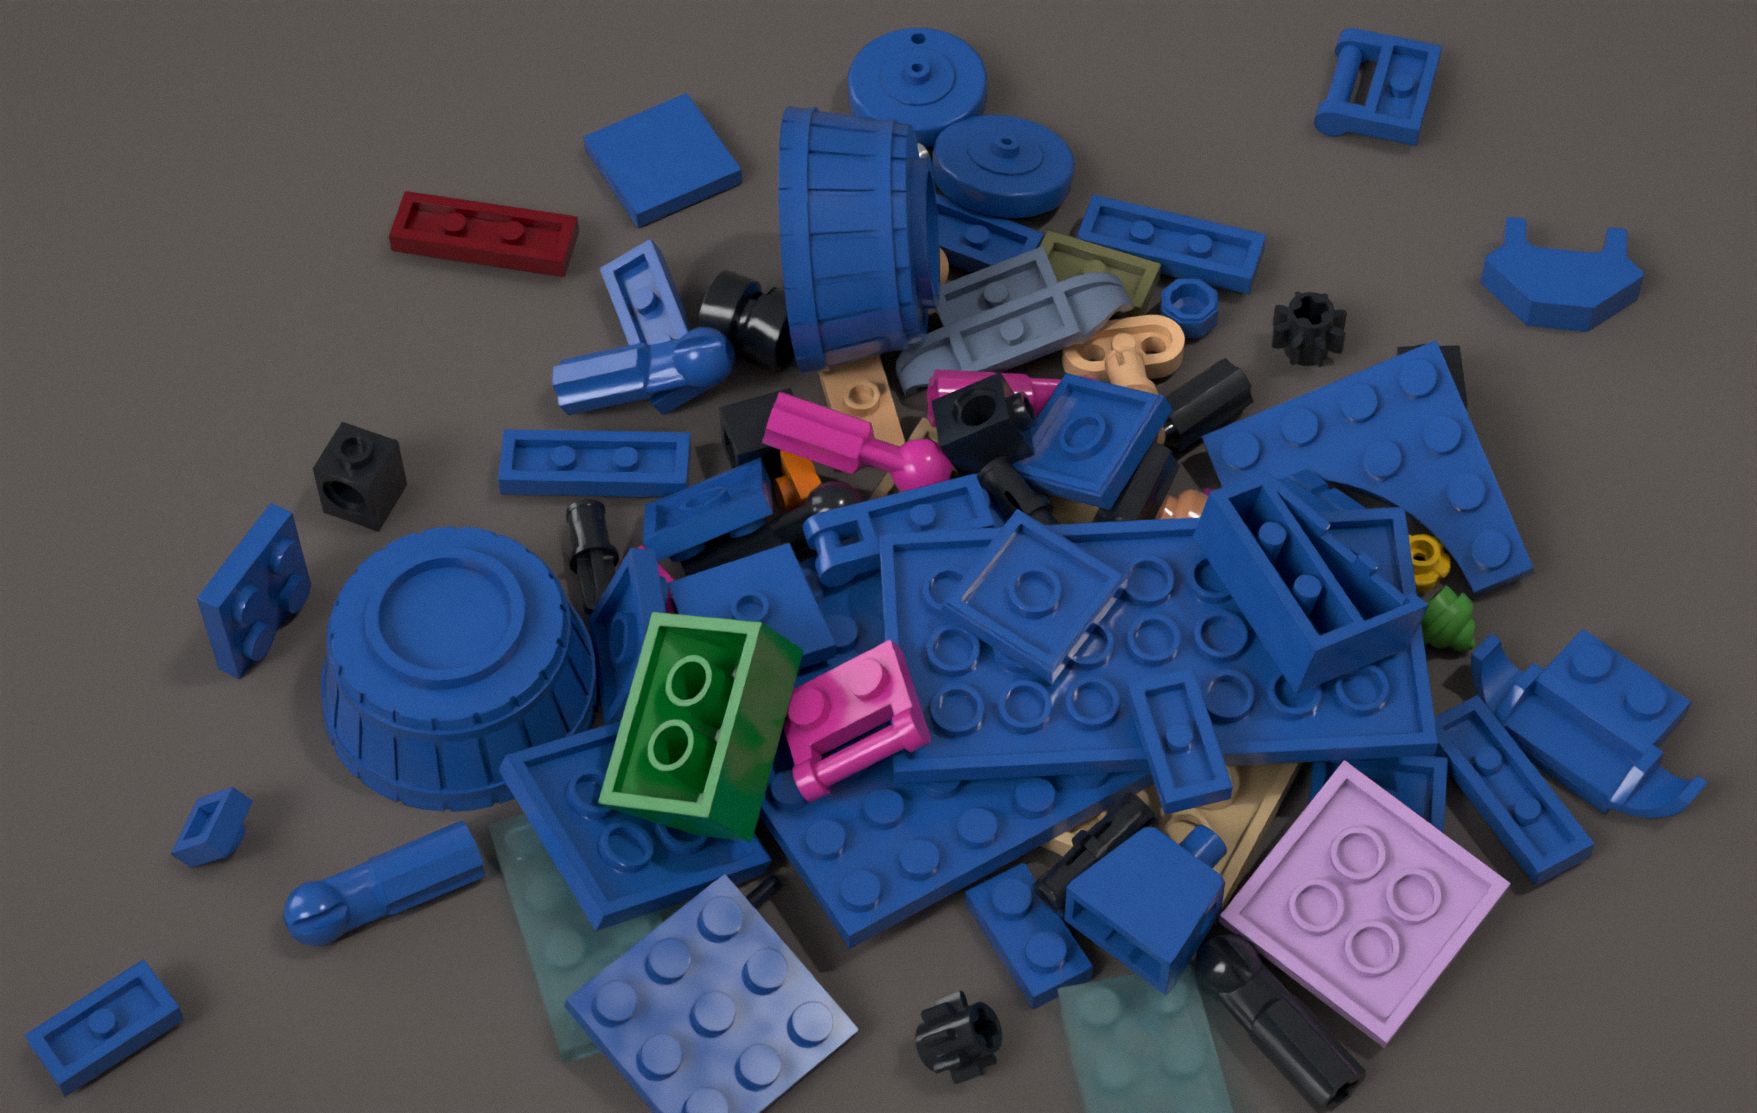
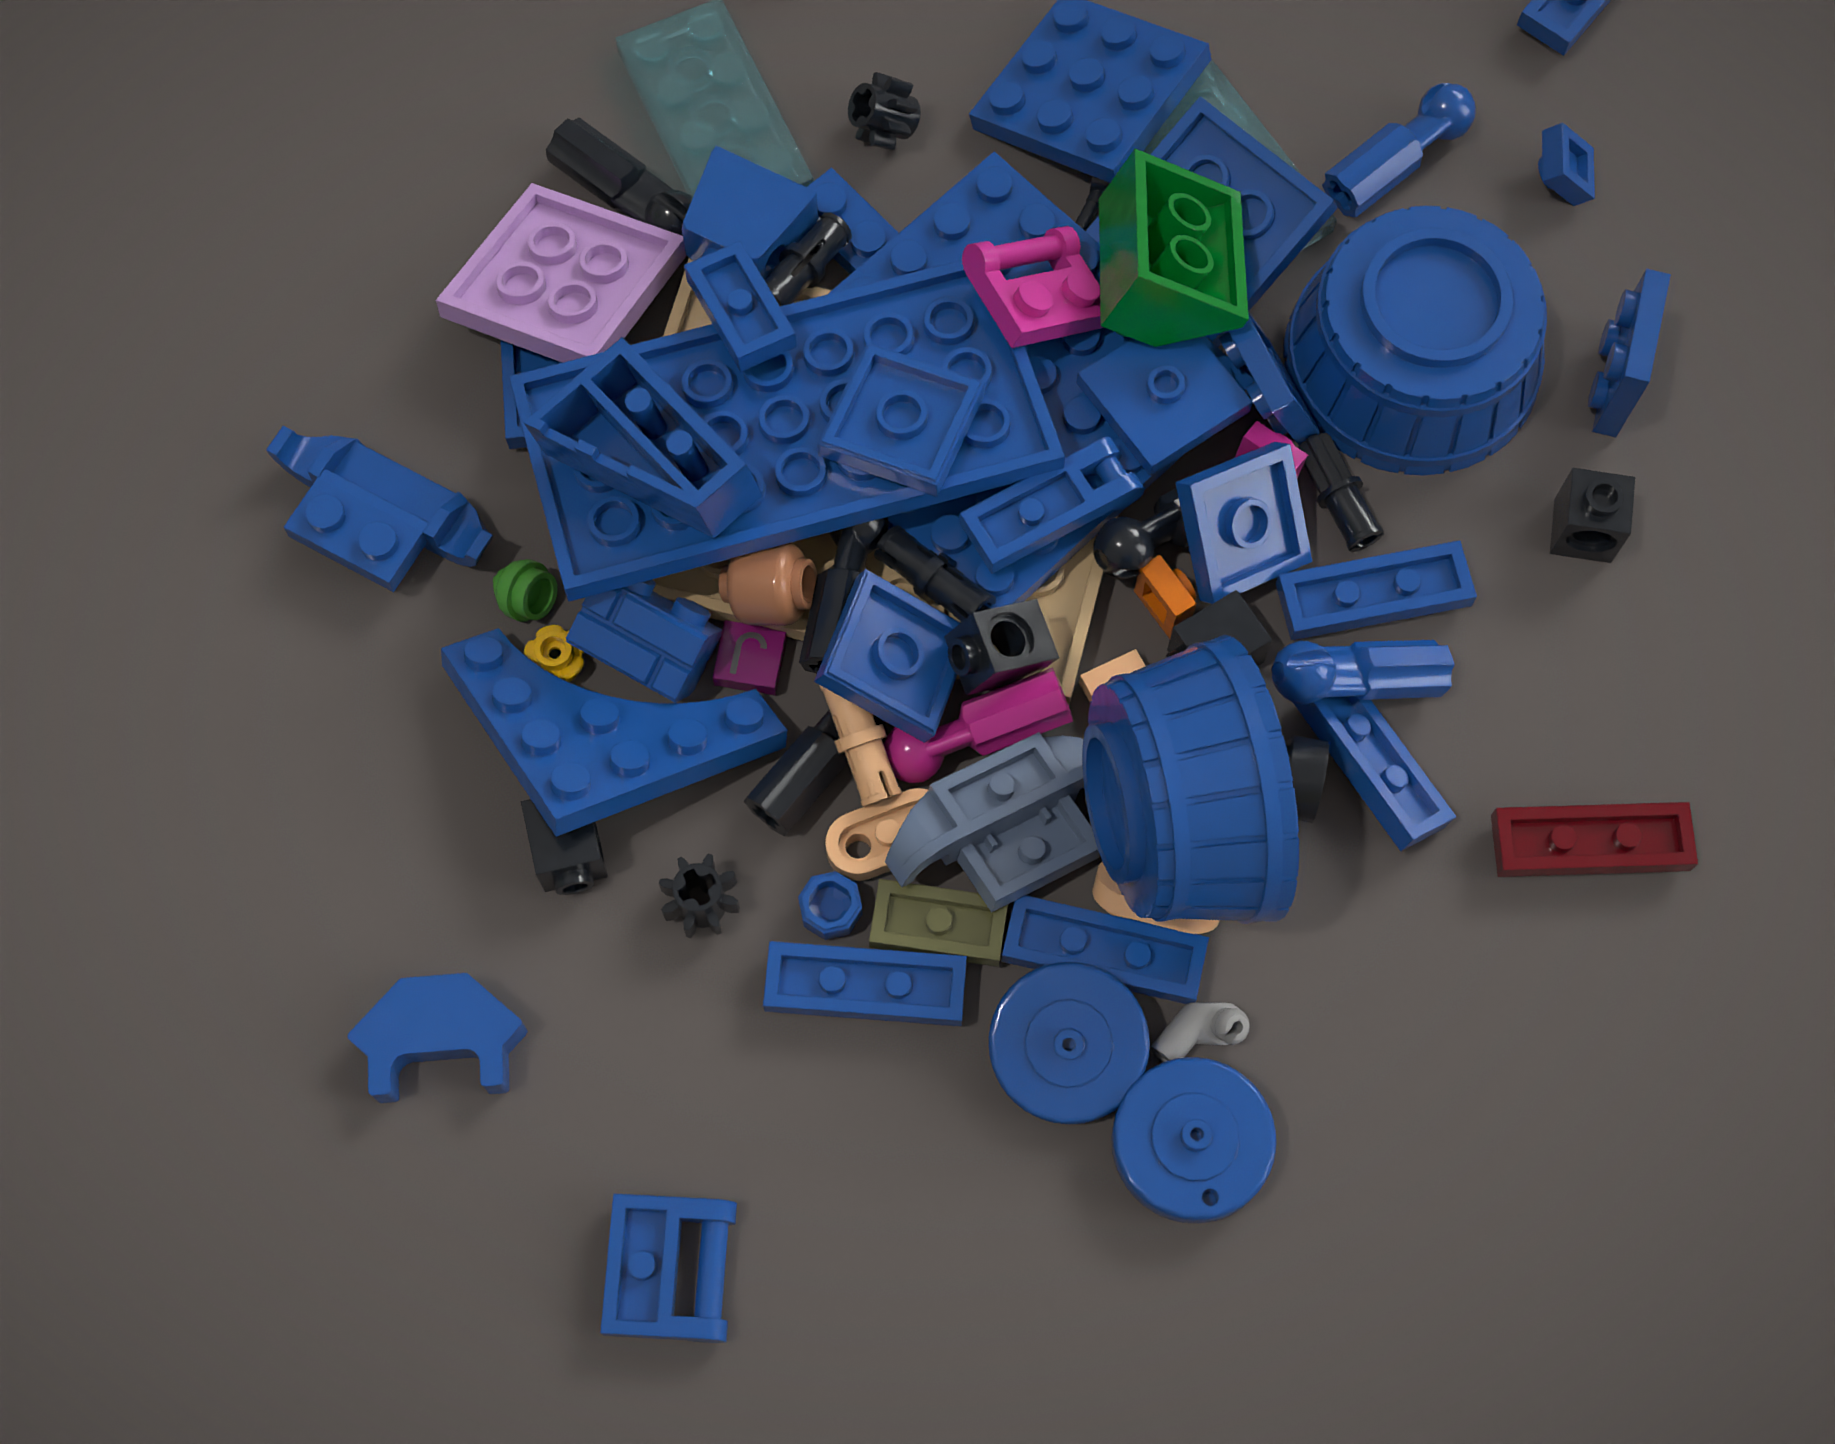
camera: 165 degrees right, 15 degrees up
(662, 160) = (1444, 991): blue tile -> none
(850, 444) = (1126, 604): dark pink piece -> none
(1509, 792) = (451, 431): blue plate -> none

